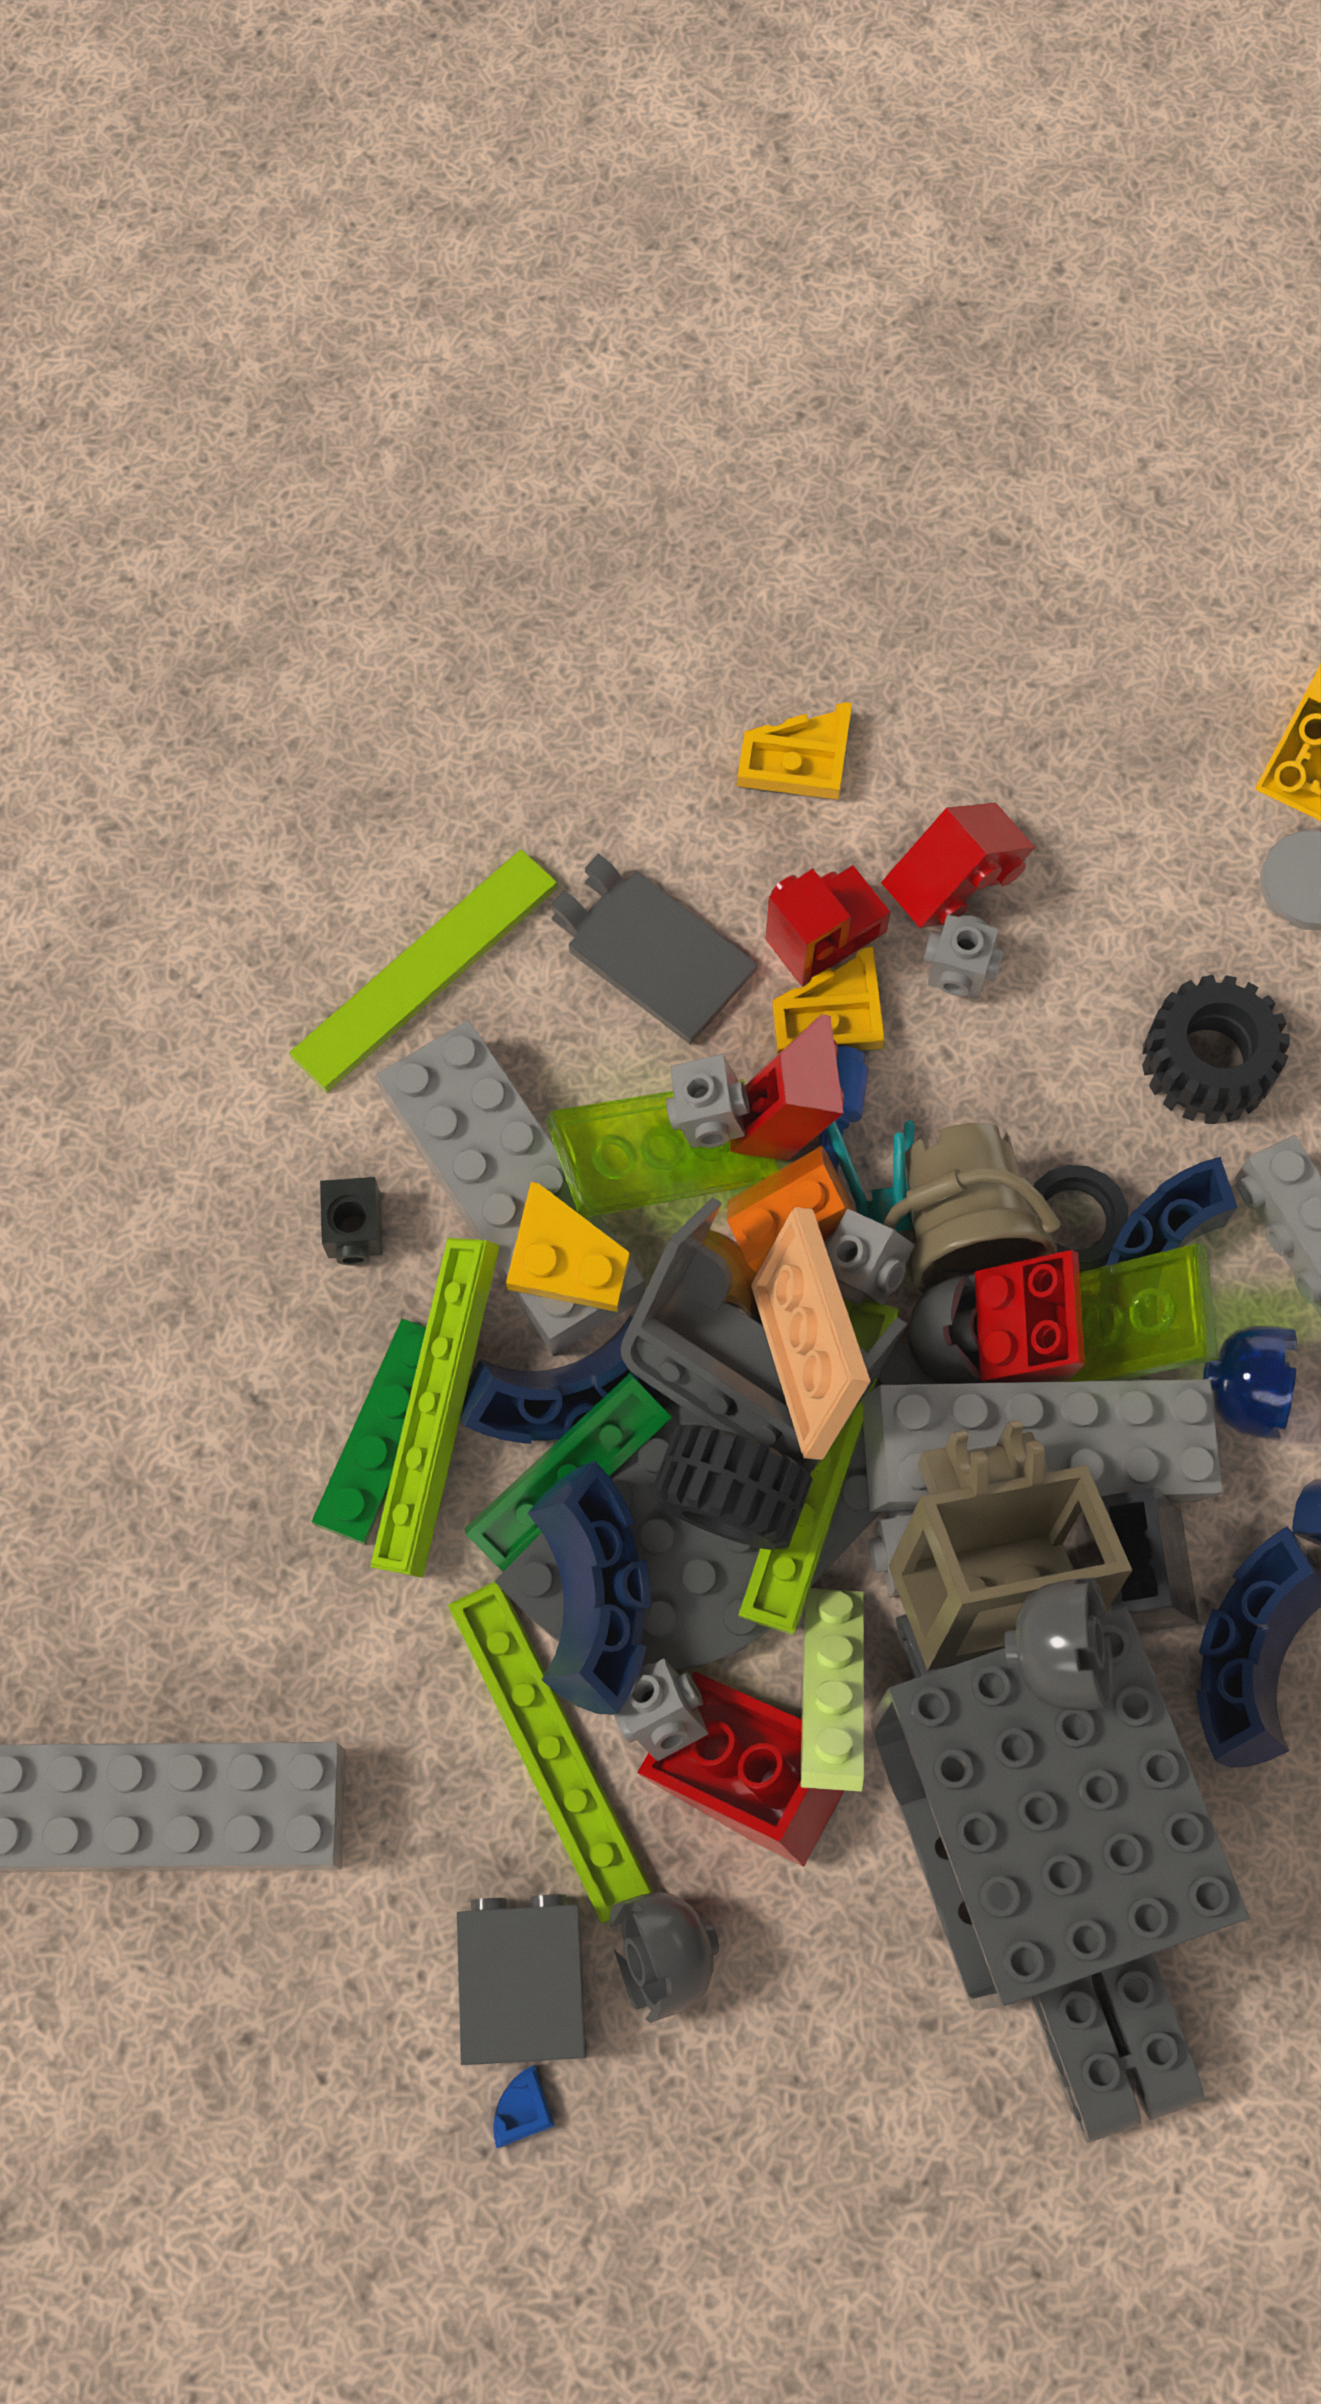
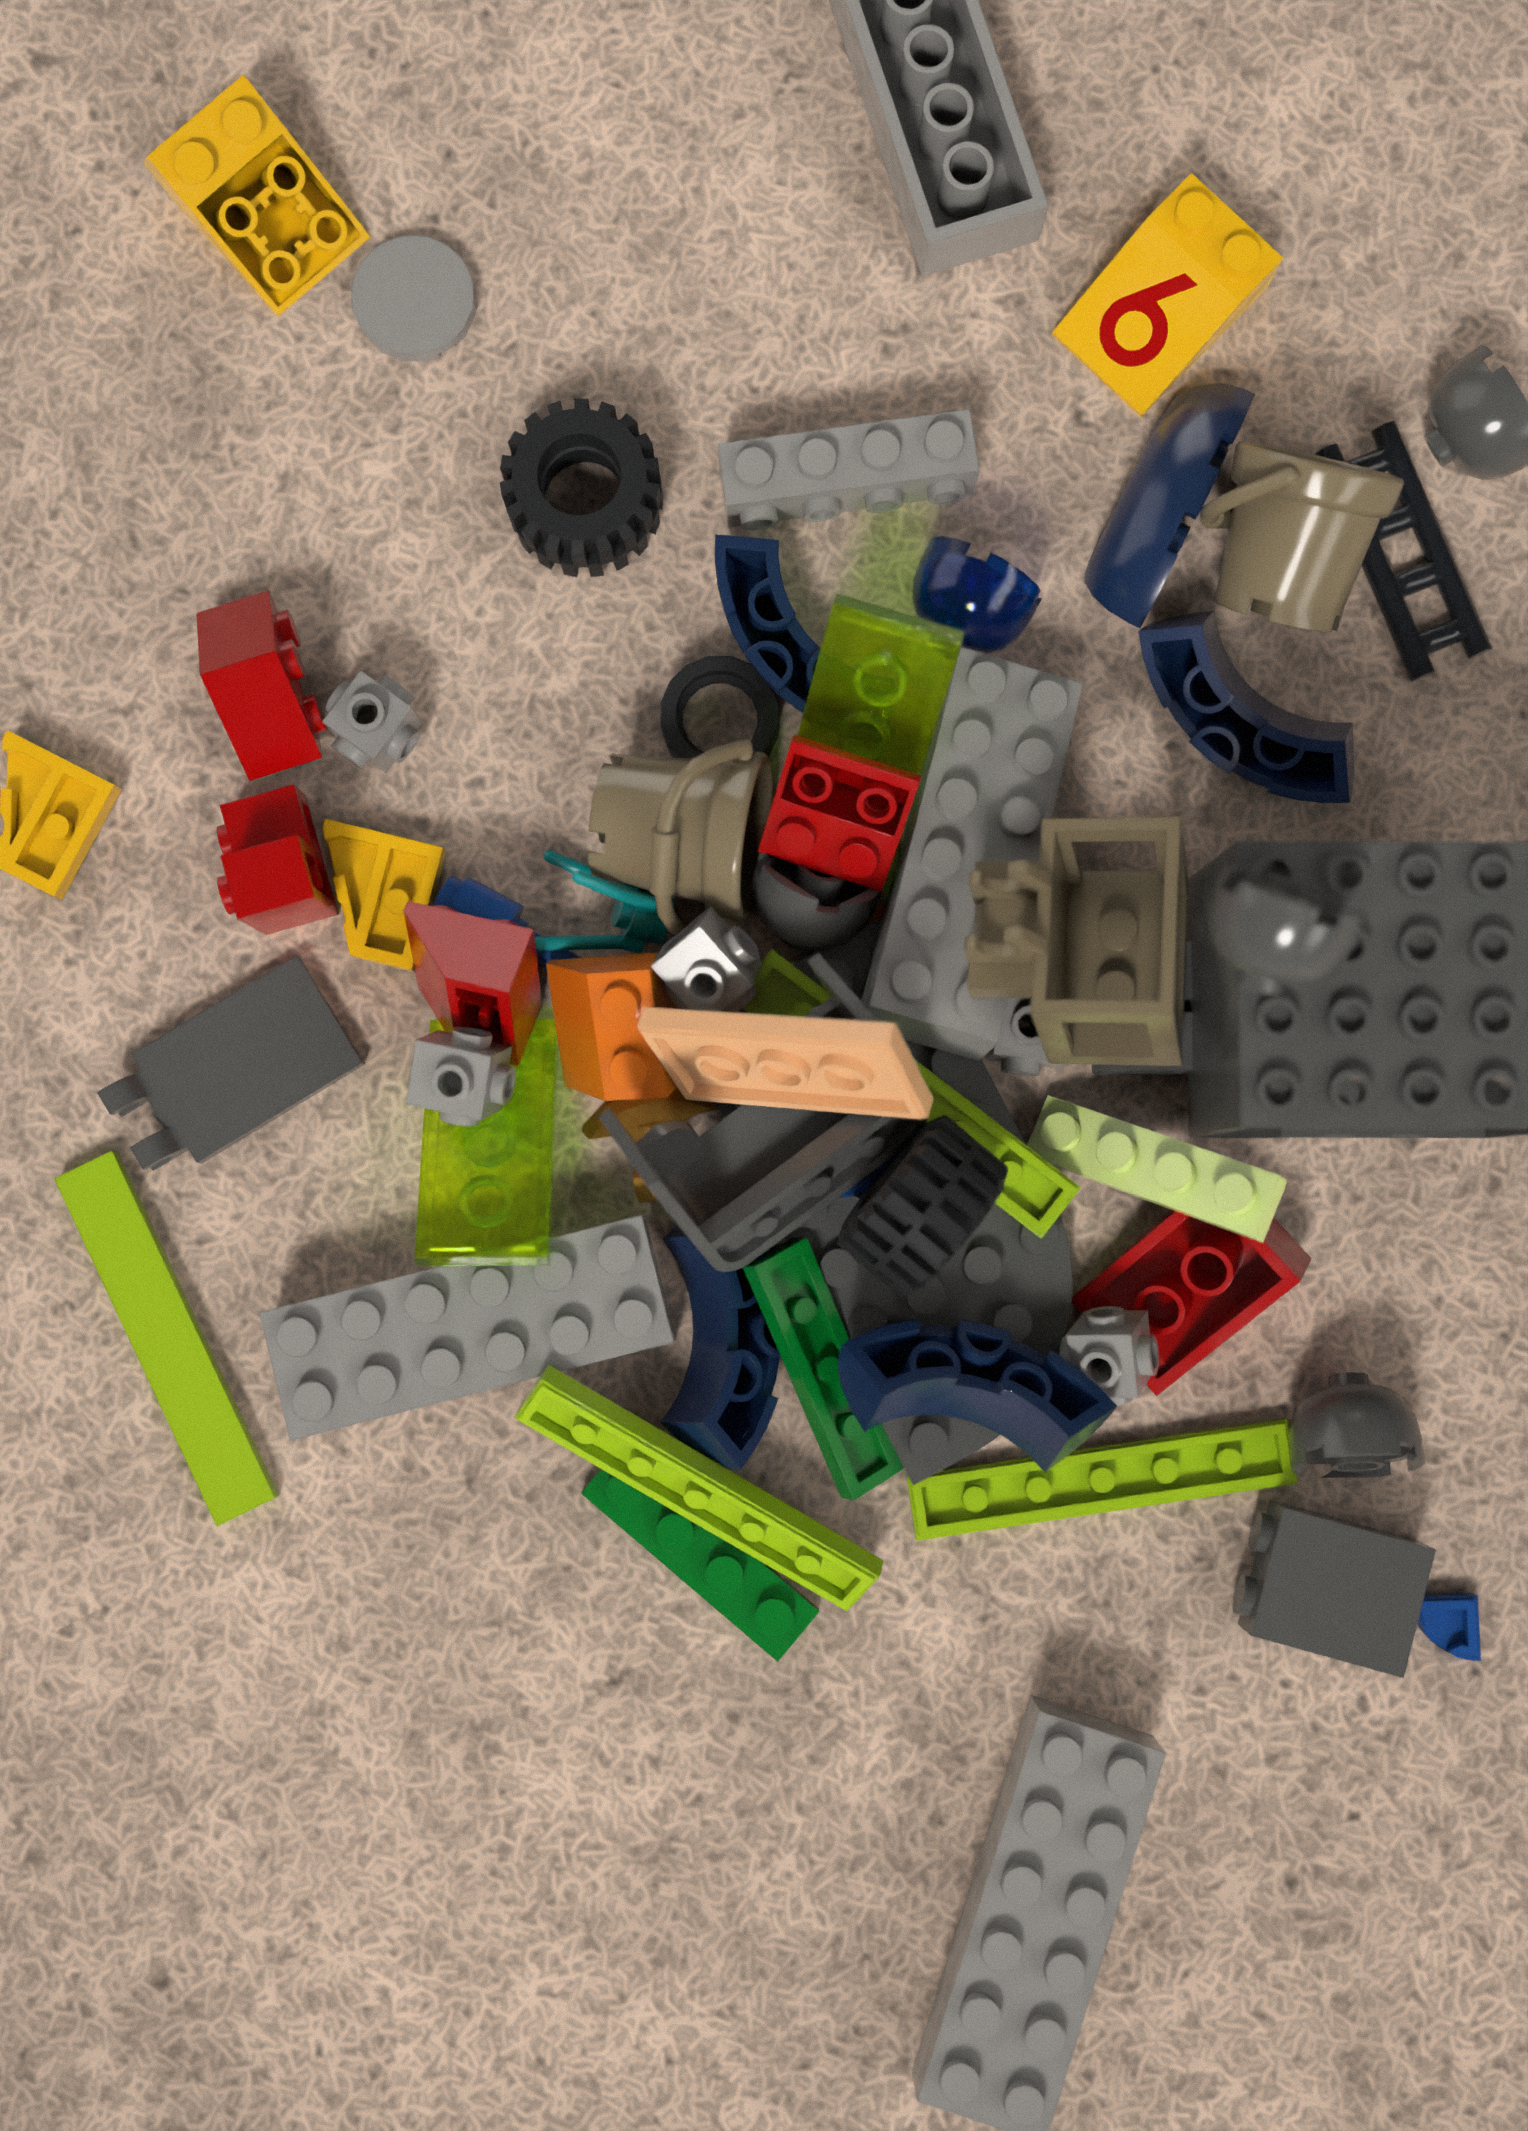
camera: 75 degrees left, 15 degrees up
(344, 1199) = (420, 1524): pearl dark grey brick -> none
(565, 1255) = (588, 1296): yellow wing -> none
(1154, 1541) = (1131, 782): black brick -> none

